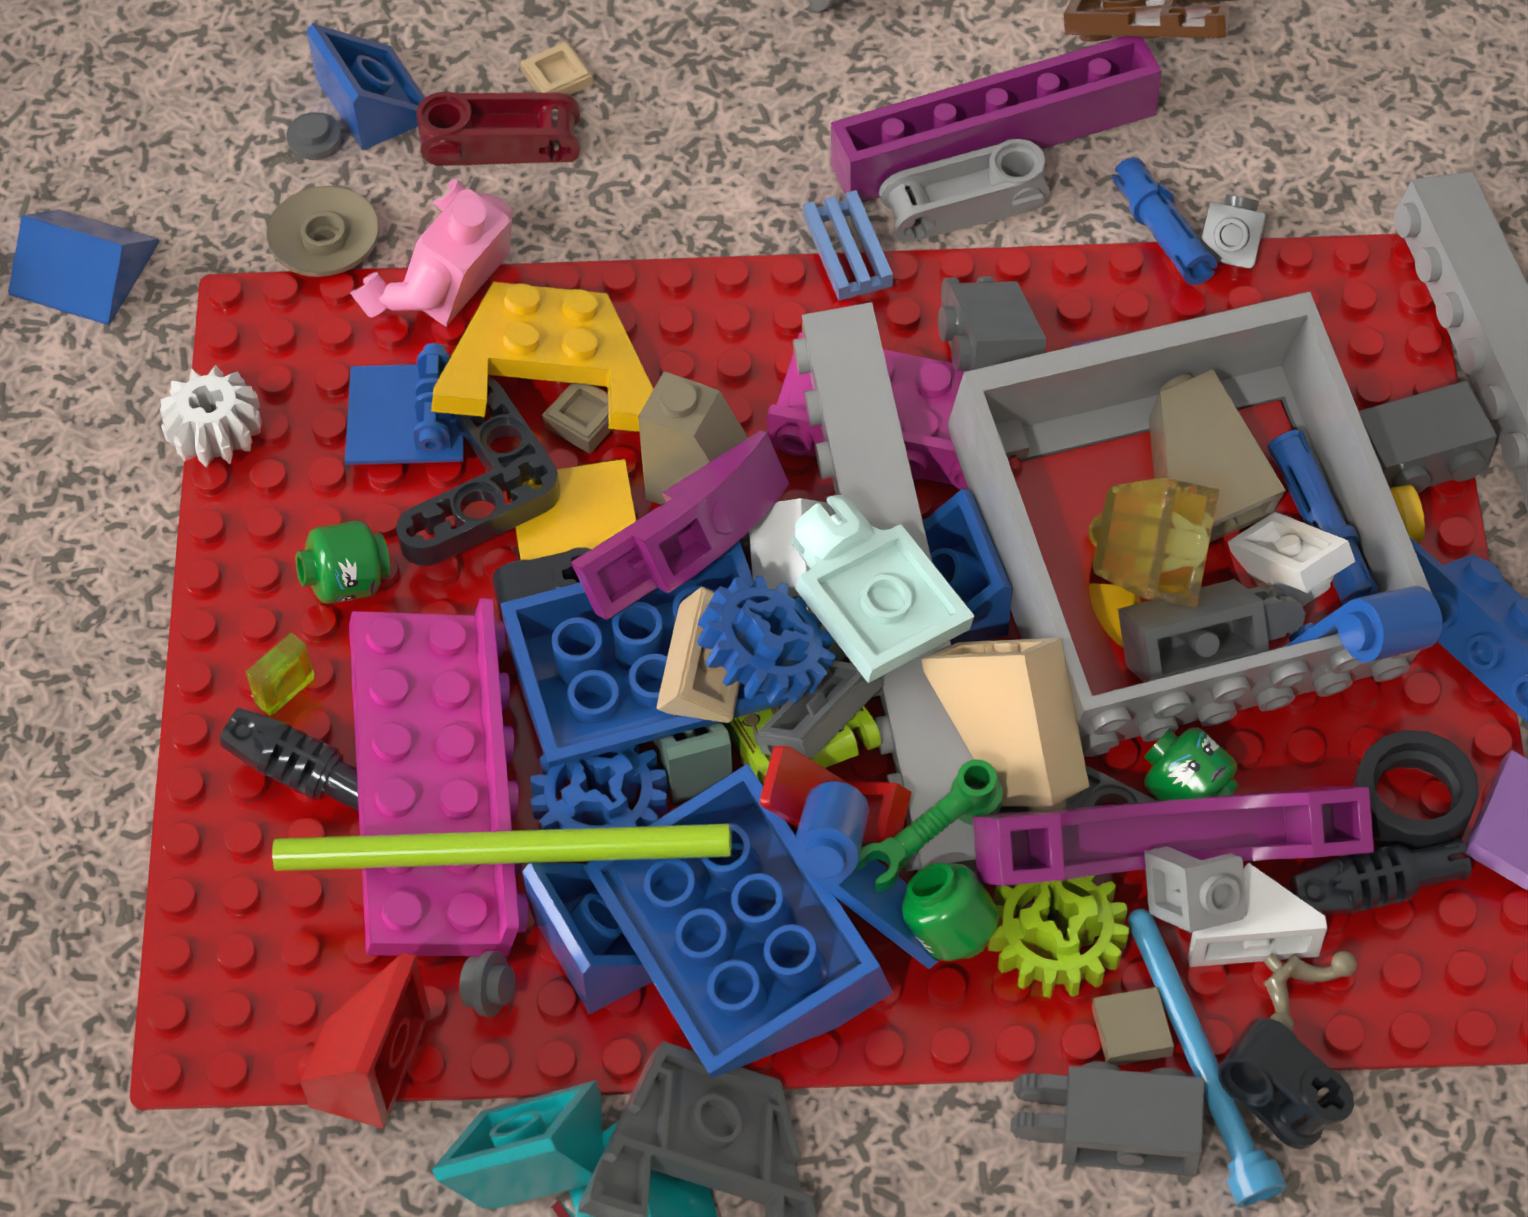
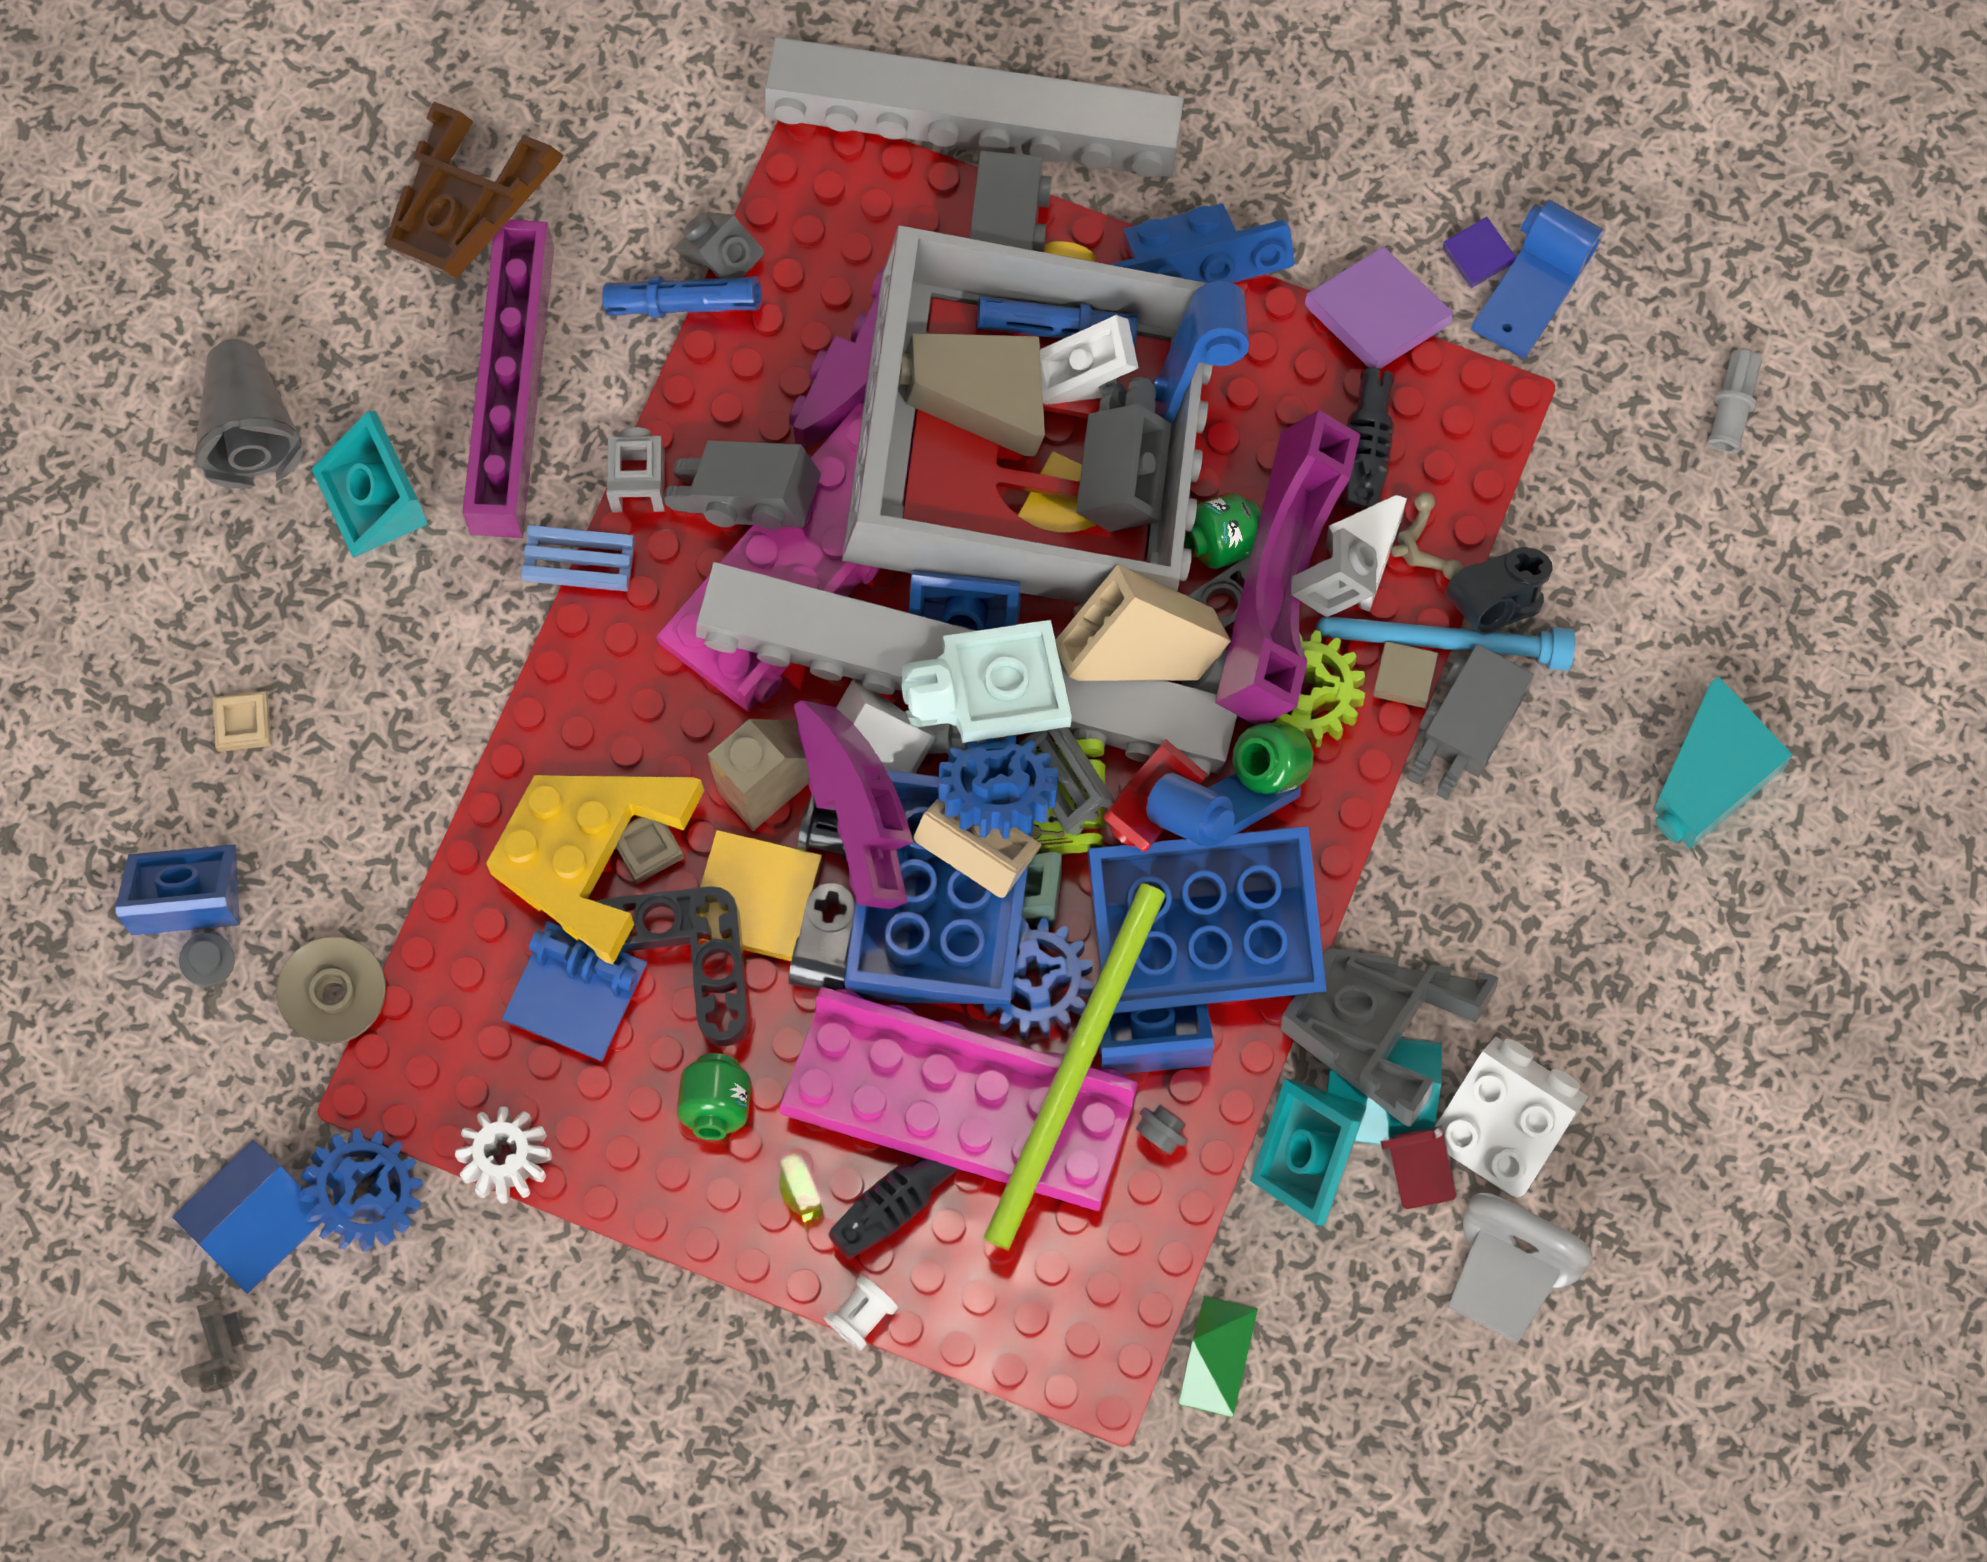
camera: 65 degrees left, 15 degrees up
(113, 317) = (378, 1202): none -> blue gear
(169, 780) = (860, 1312): none -> white bush
(266, 1150) = (1218, 1356): none -> green slope
(367, 1046) = (1189, 1239): red slope -> none
(448, 259) = (441, 882): bright pink torso -> none
(497, 128) = (290, 796): dark red piece -> none
(836, 70) = (368, 488): none -> teal slope
(959, 245) = (636, 444): none -> light grey window
(959, 804) = (1199, 708): green brick -> none
(966, 190) = (565, 435): light grey piece -> none
(1155, 538) = (1047, 456): clear yellow torso -> none
(1431, 755) = (1314, 343): black tyre -> none

